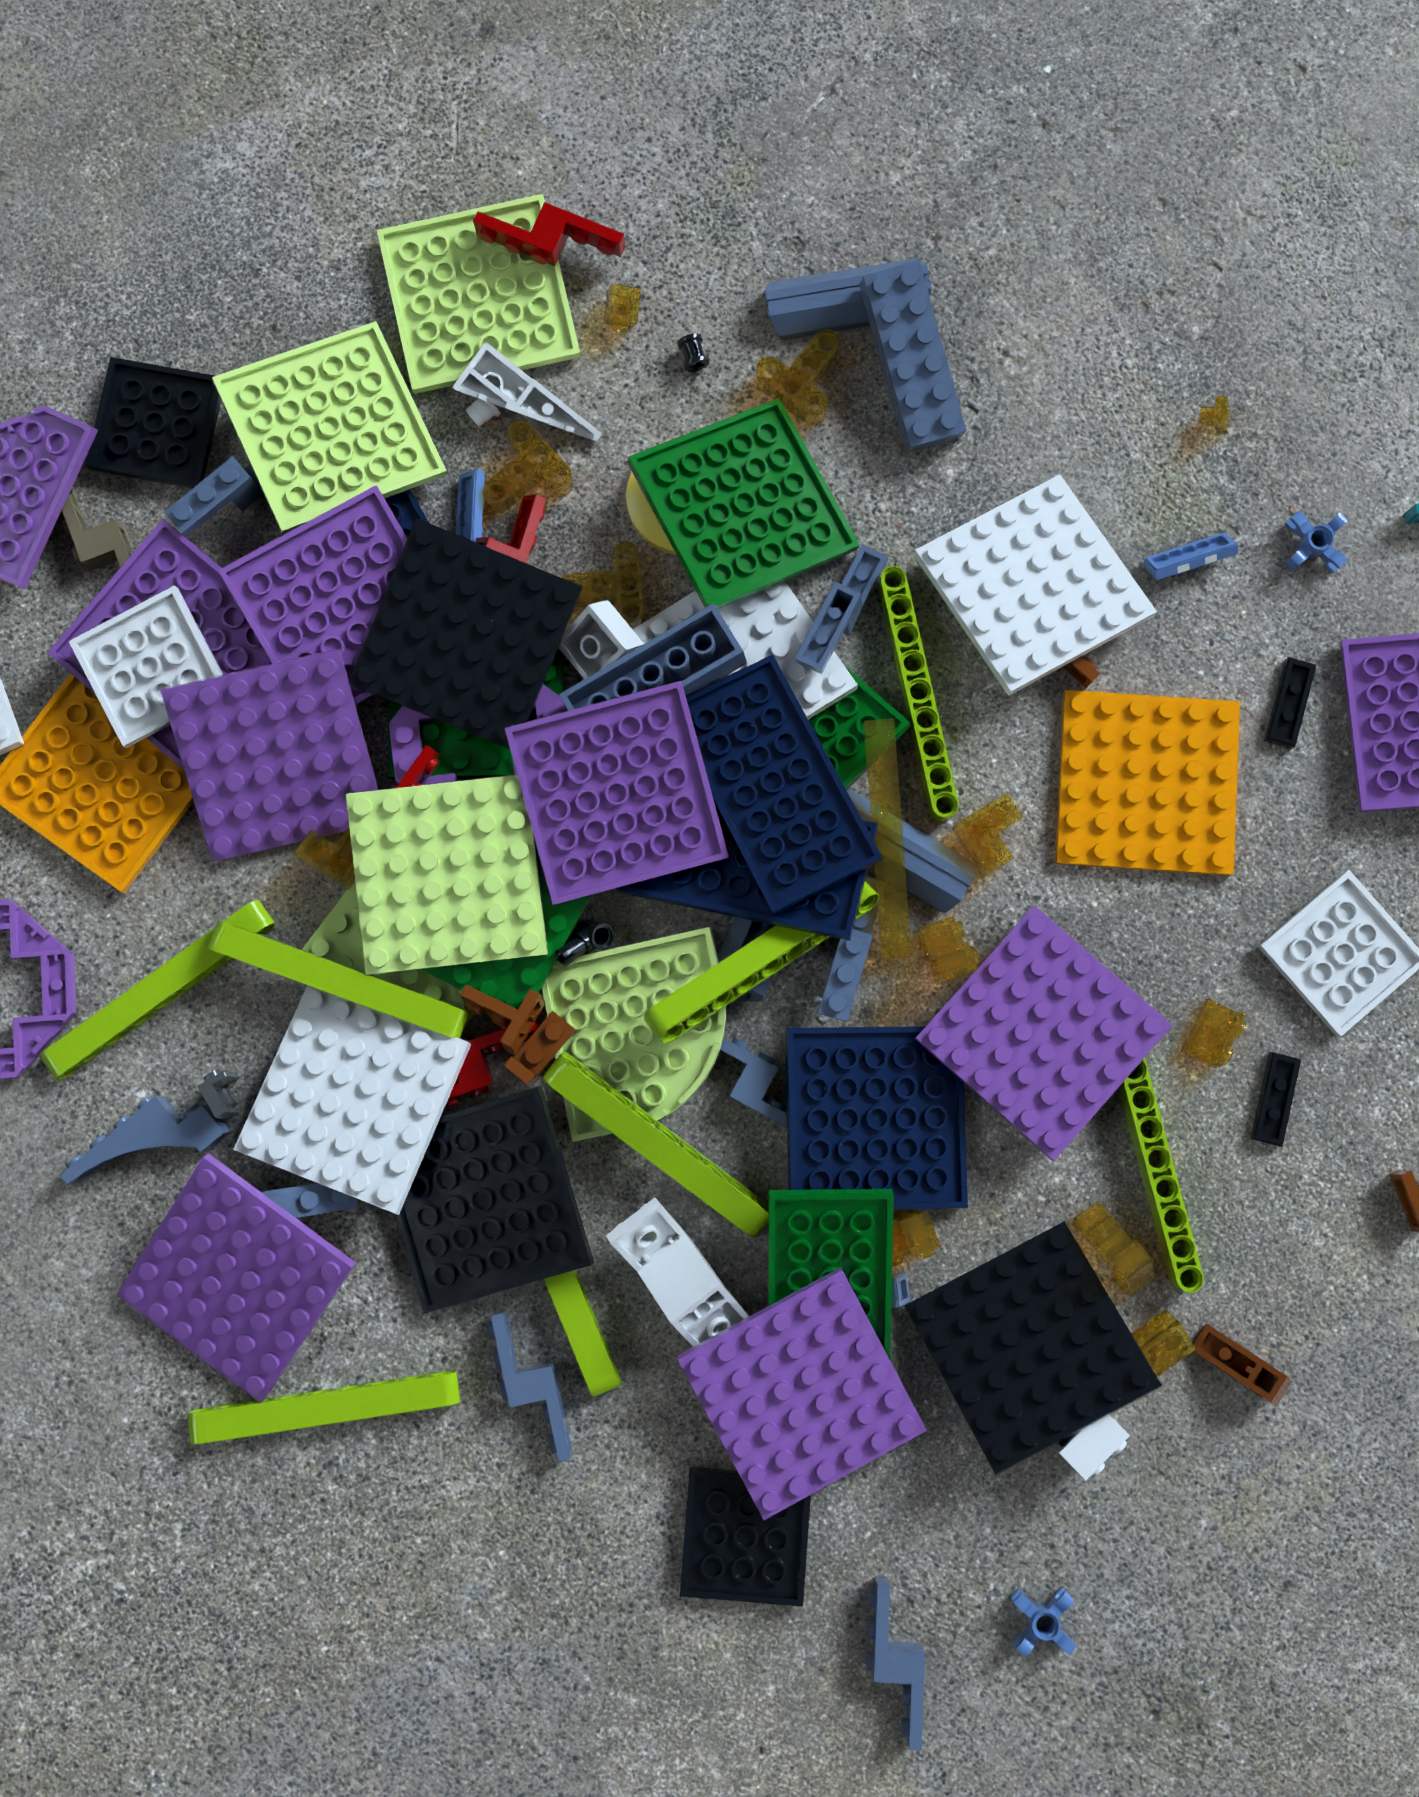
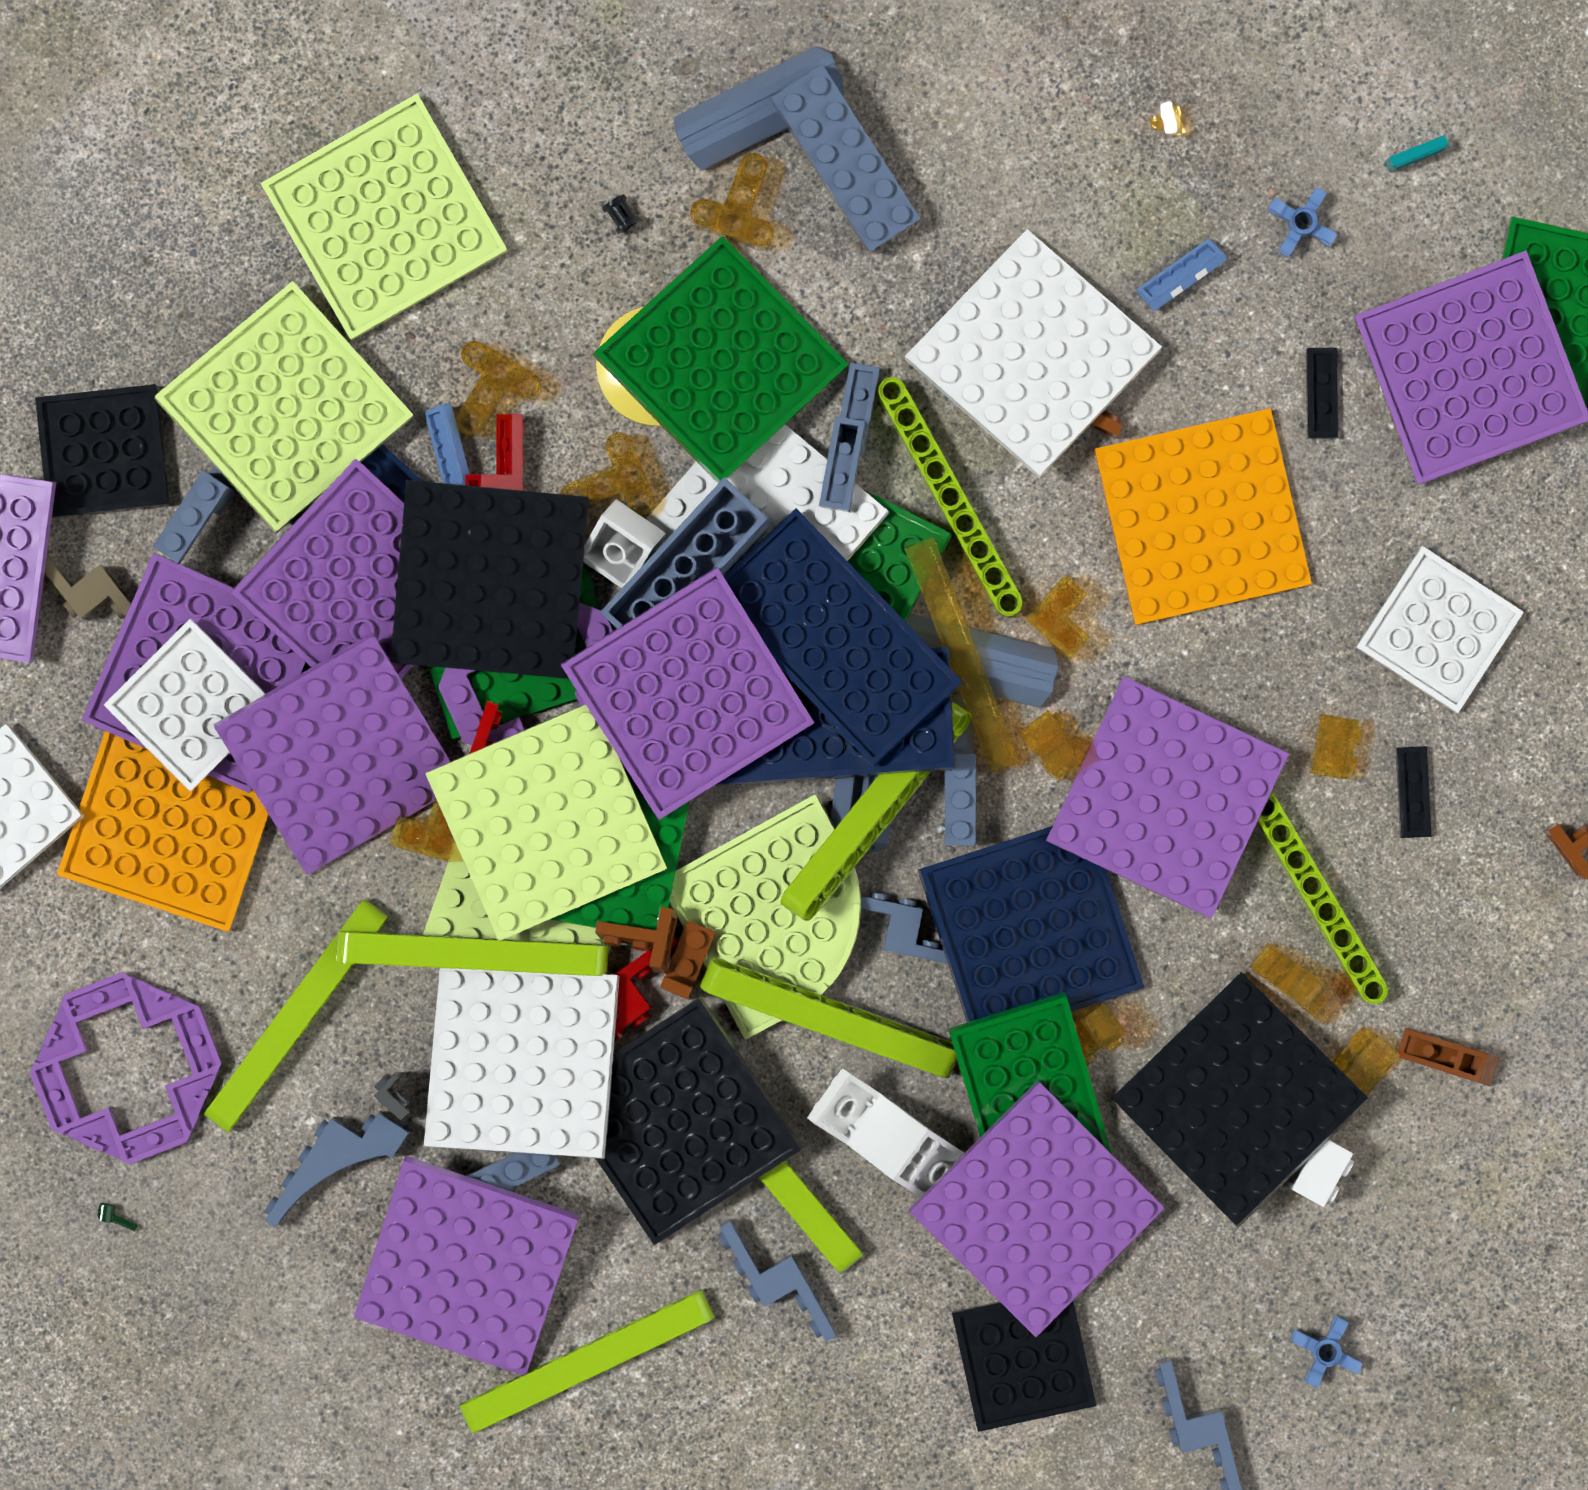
camera: 20 degrees left, 5 degrees up
(482, 411) = (427, 337): white piece -> none
(503, 384) = (438, 308): white wedge -> none
(549, 234) = (440, 140): red bracket -> none
(585, 941) = (699, 838): black pin -> none
(628, 300) = (542, 182): clear yellow brick -> none
(900, 1290) = (1101, 1085): sand blue tile -> none

